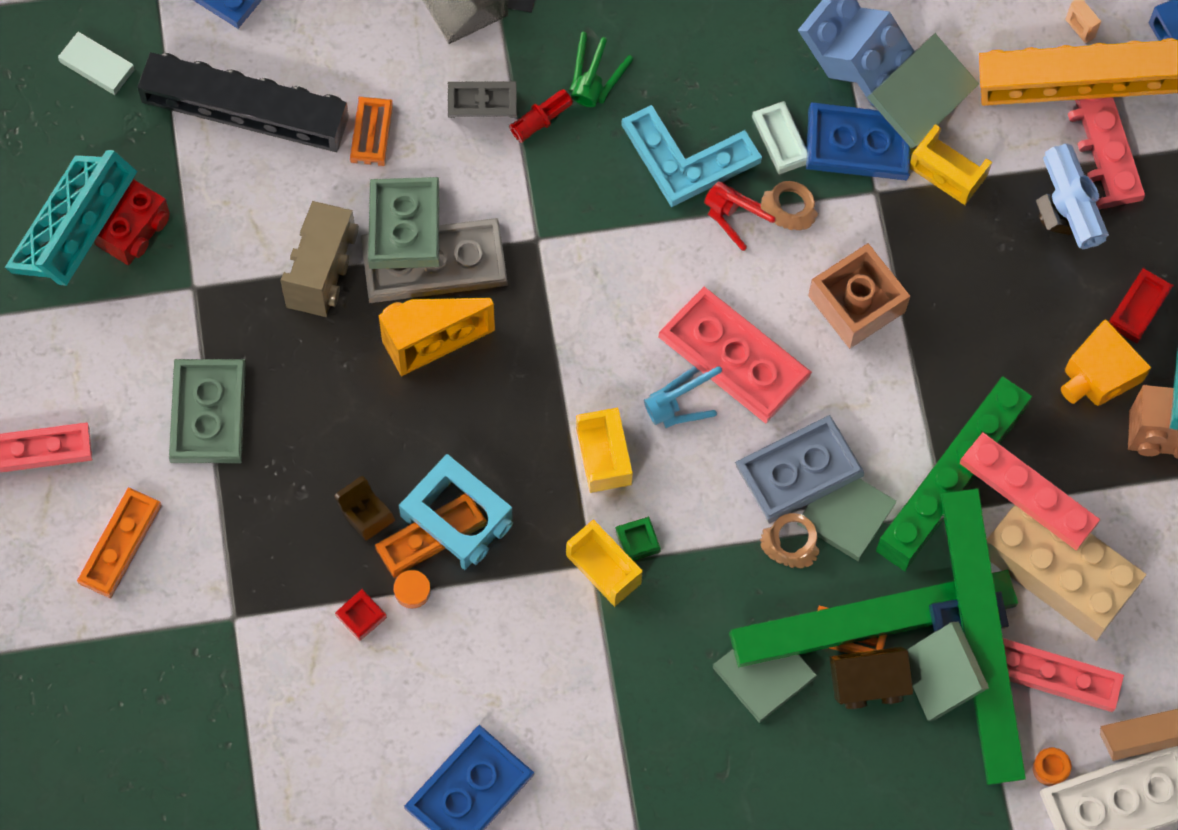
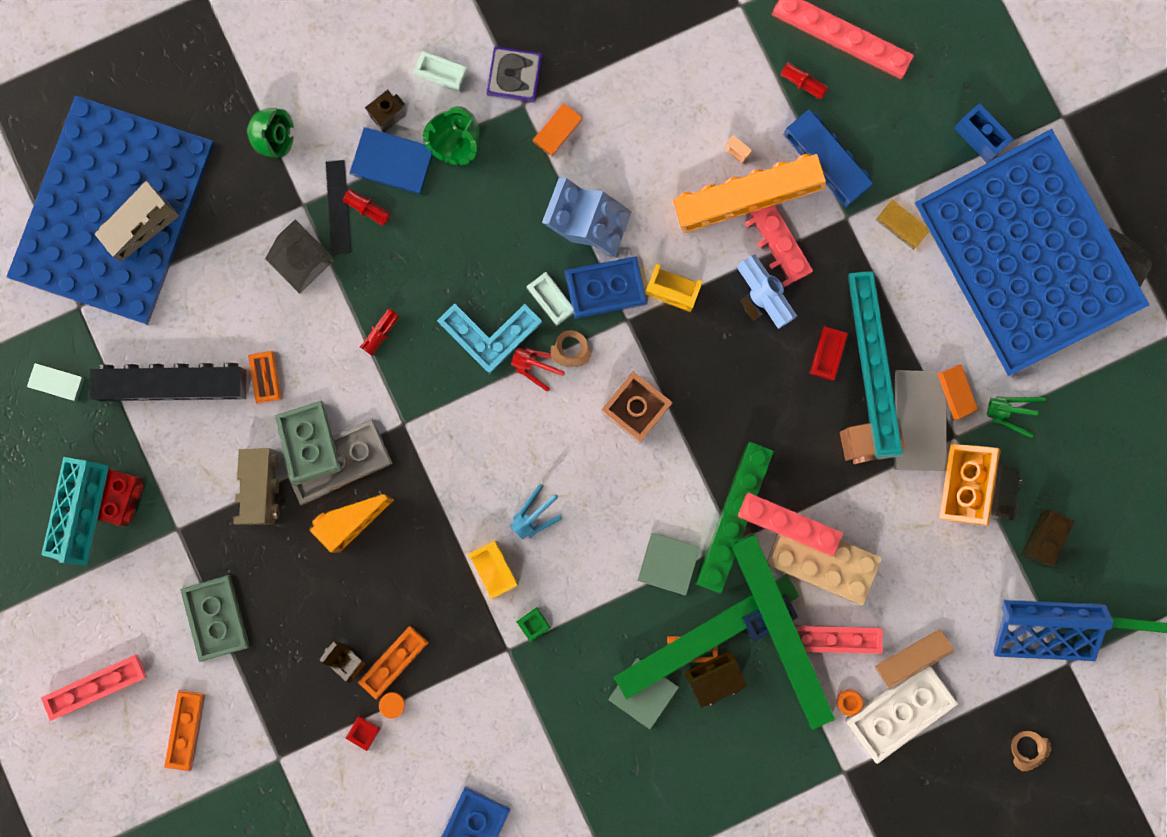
camera: 15 degrees left, 15 degrees up
(465, 547) = (430, 636): medium azure panel -> none
(482, 99) = (335, 335): dark grey hinge -> none
(588, 88) = (406, 300): green plant -> none
(604, 563) = (516, 651): yellow panel -> none
(751, 363) = (562, 471): coral tile -> none
(799, 469) = (628, 544): sand blue tile -> none
(802, 557) = (624, 602): medium nougat piece -> none
(923, 90) = (640, 238): sand green tile -> none
(944, 671) = (763, 663): sand green tile -> none
(1103, 367) = (815, 409): light orange torso -> none

